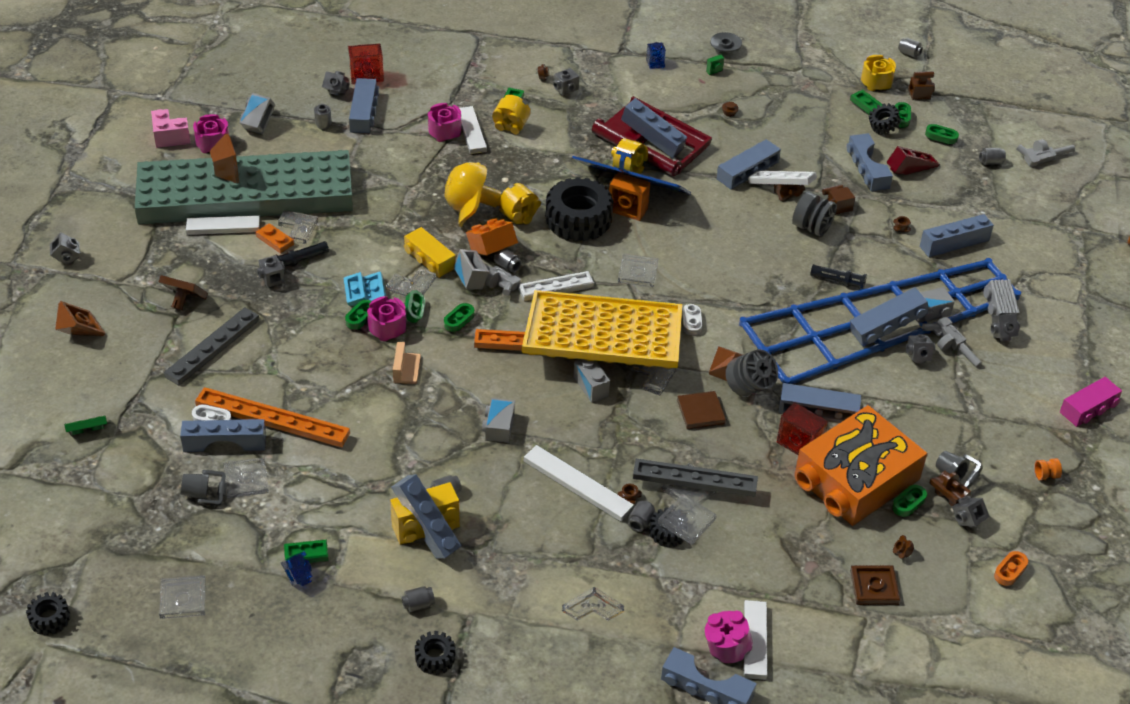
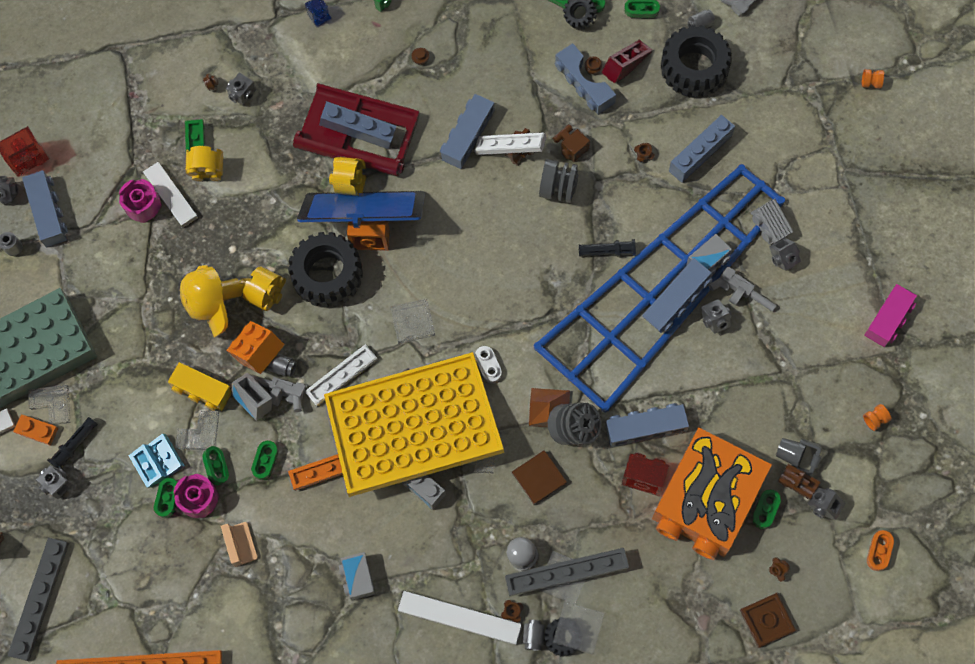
camera: 15 degrees left, 25 degrees up
(659, 447) = (521, 553): none -> light grey helmet
(881, 156) = (593, 65): none -> reddish brown plate
(976, 177) = (699, 41): none -> black tyre

